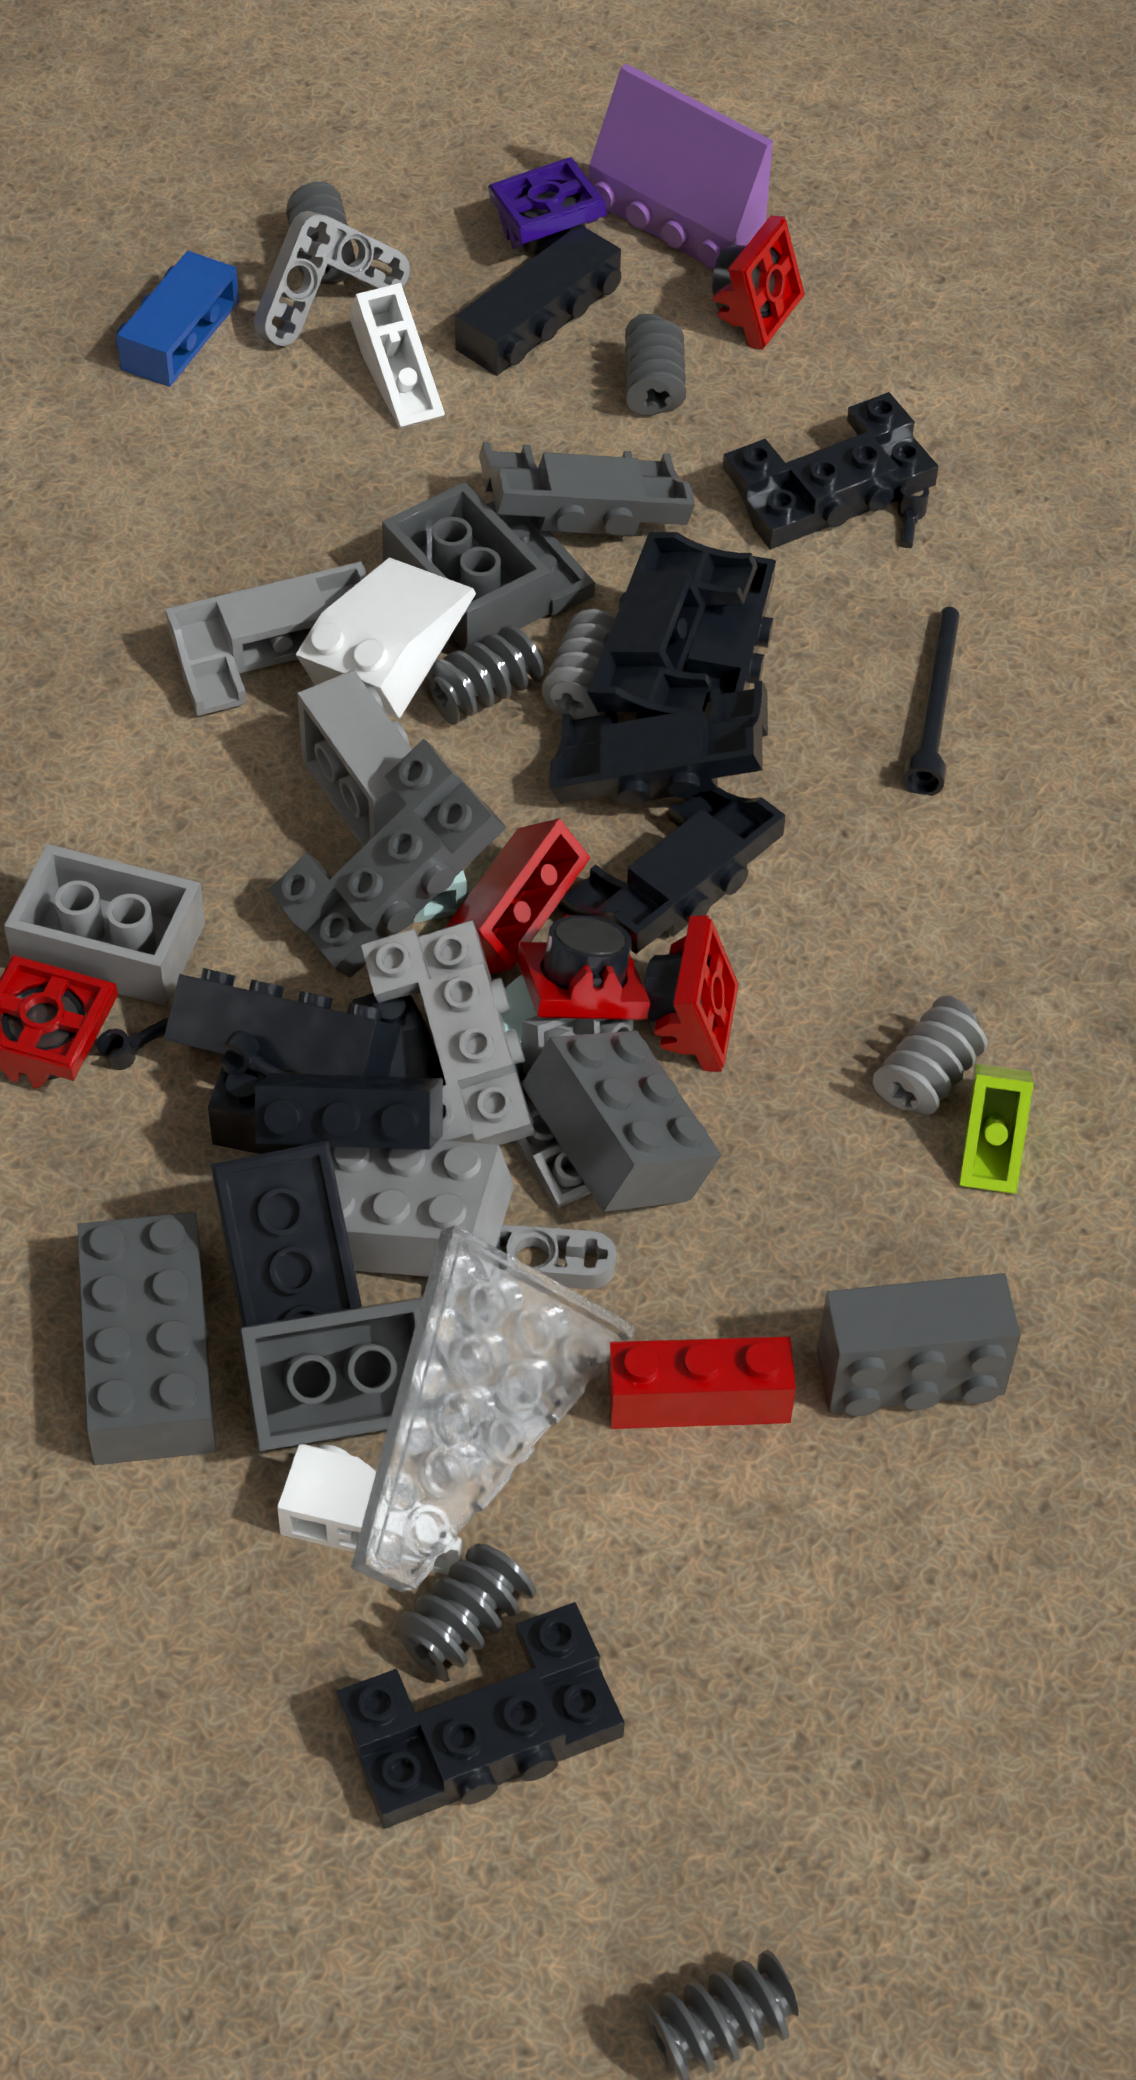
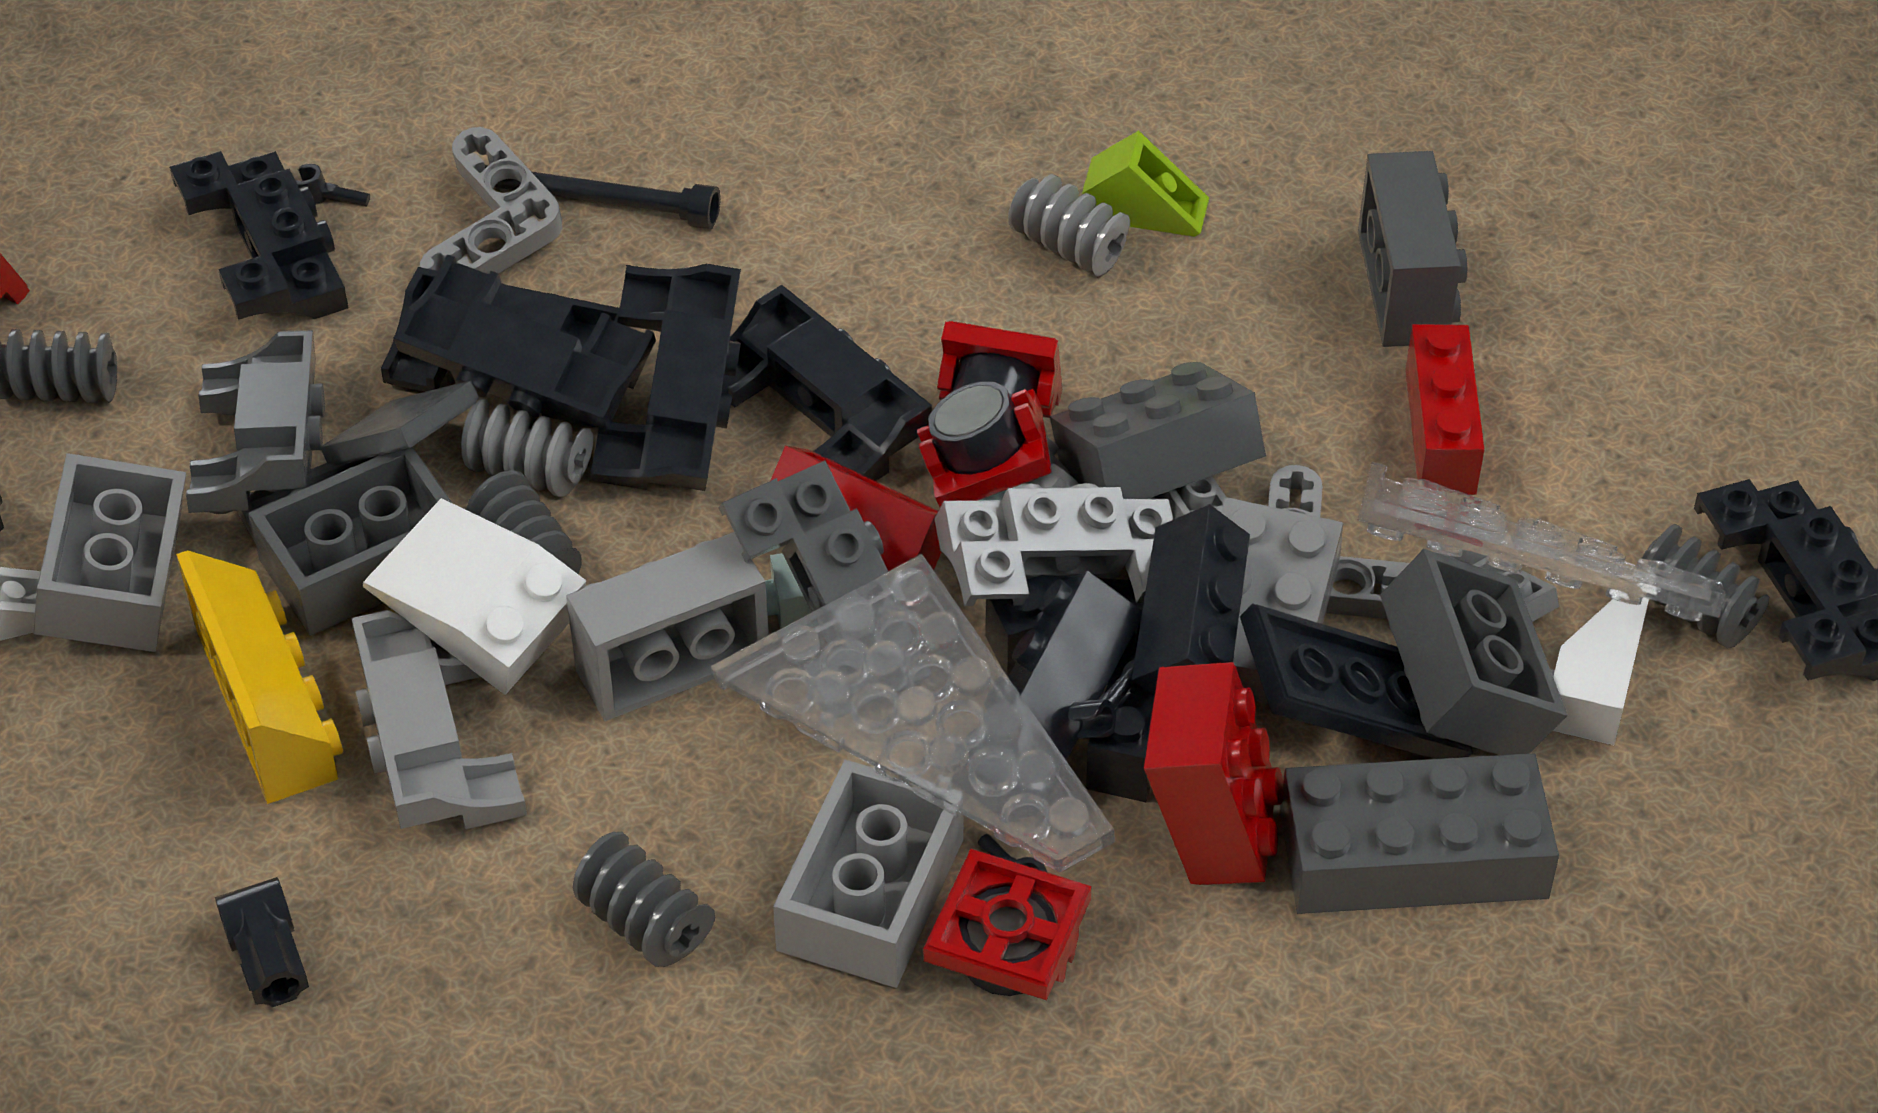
camera: 85 degrees left, 5 degrees down
(82, 561) = (260, 931): none -> black piece
(89, 779) = (641, 900): none -> dark grey piece
(161, 1130) = (1213, 774): none -> red brick
(249, 911) = (927, 705): none -> clear wing
(310, 513) = (260, 676): none -> yellow slope
(434, 415) = (109, 553): none -> light grey brick
(580, 567) = (400, 424): none -> dark grey tile
(886, 634) = (509, 208): none -> light grey beam

